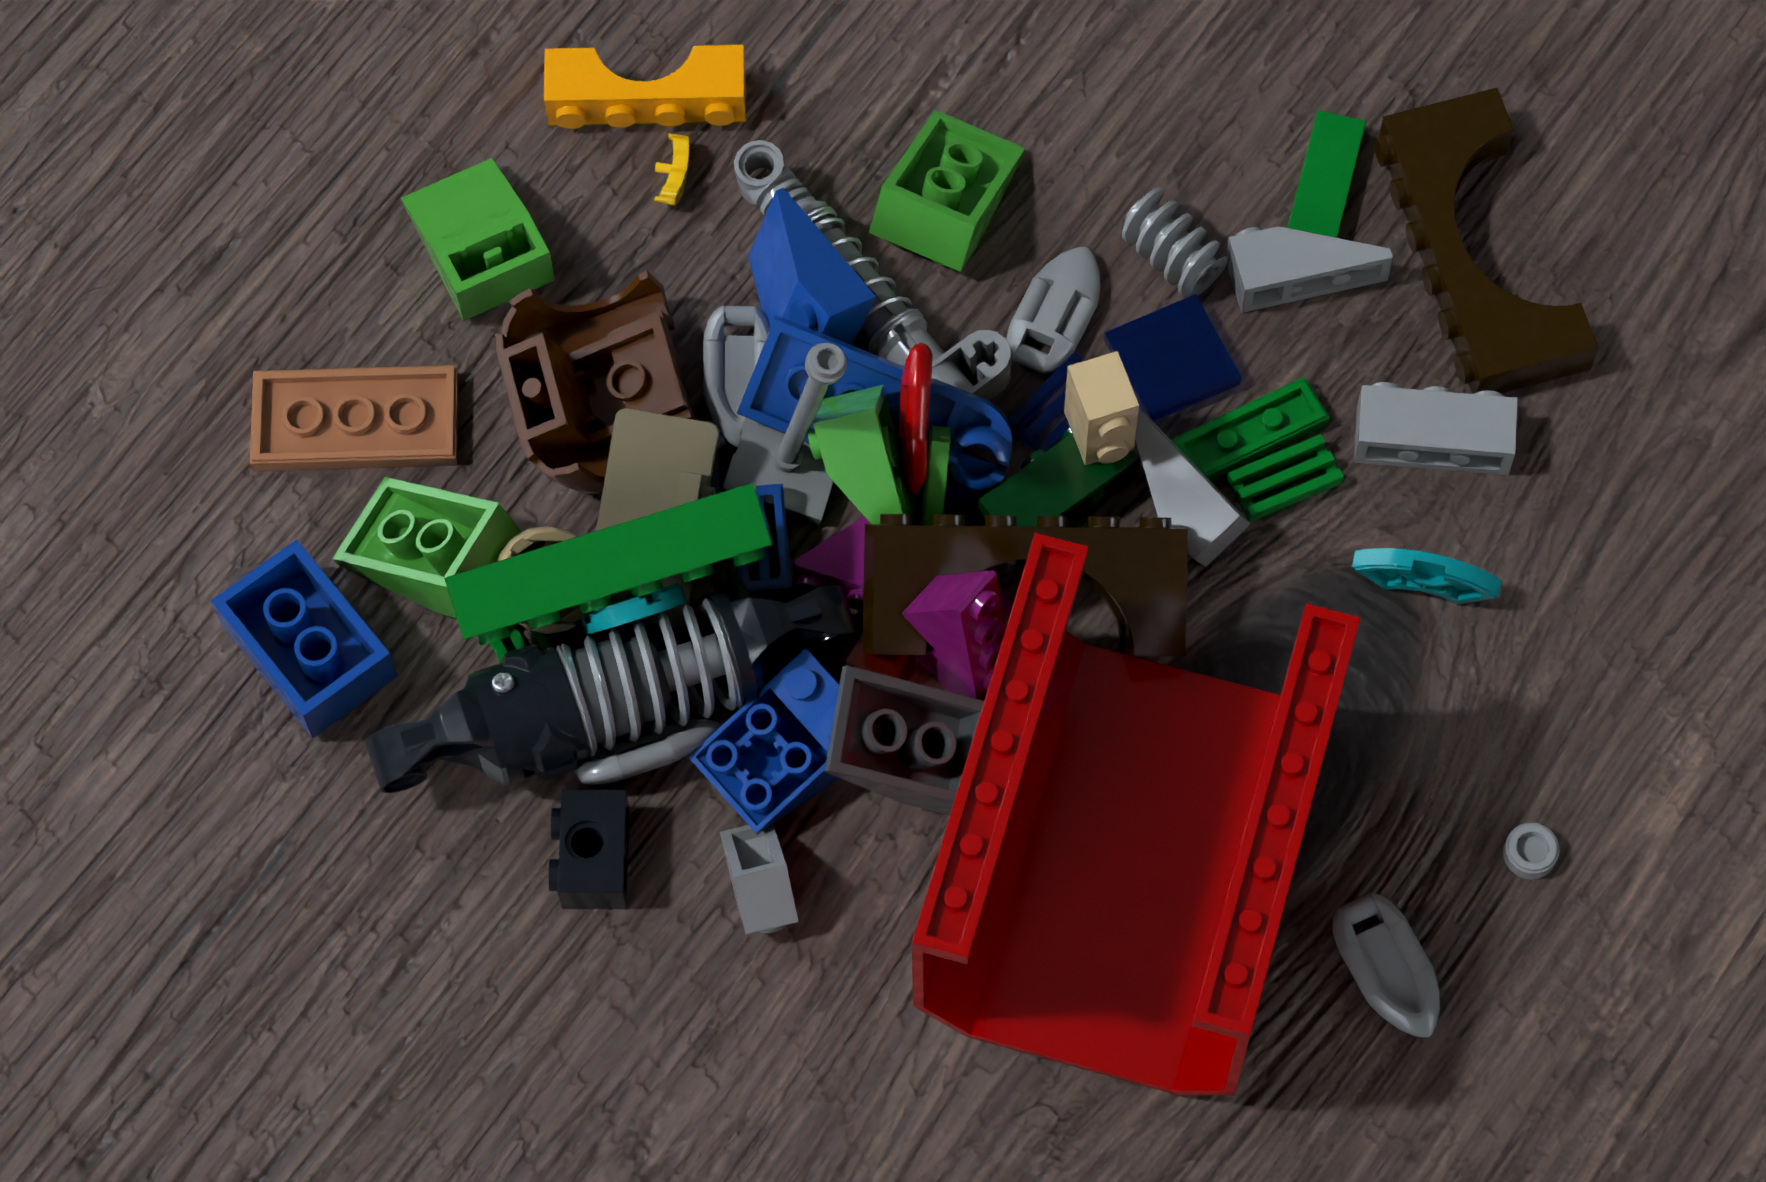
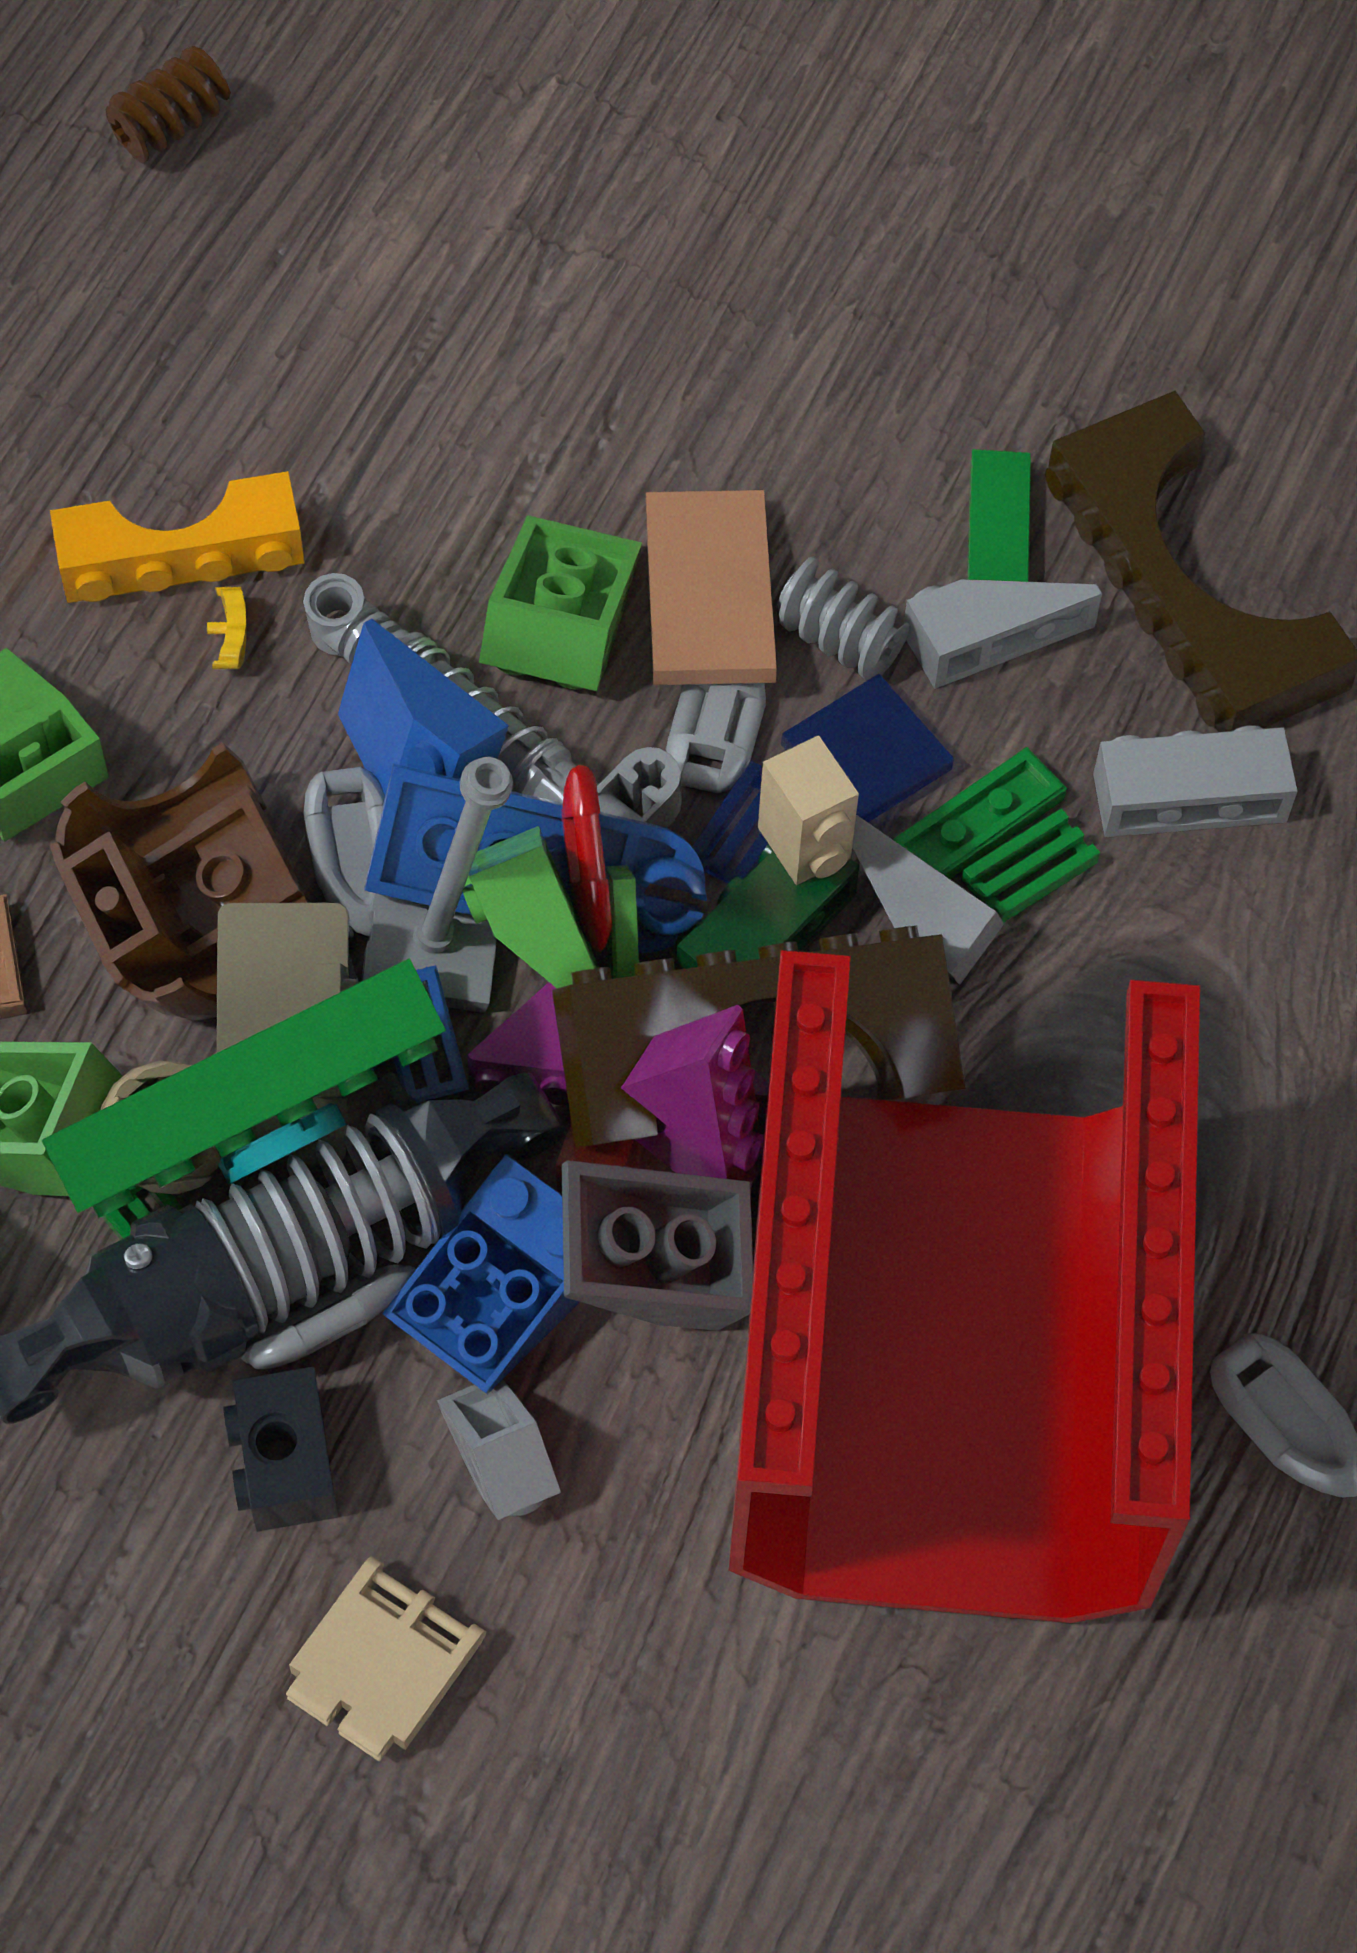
camera: 15 degrees left, 5 degrees down
(636, 1026) = (379, 1662): none -> tan plate
(1071, 197) = (710, 588): none -> nougat tile
(1426, 573) = (1226, 944): teal tile -> none

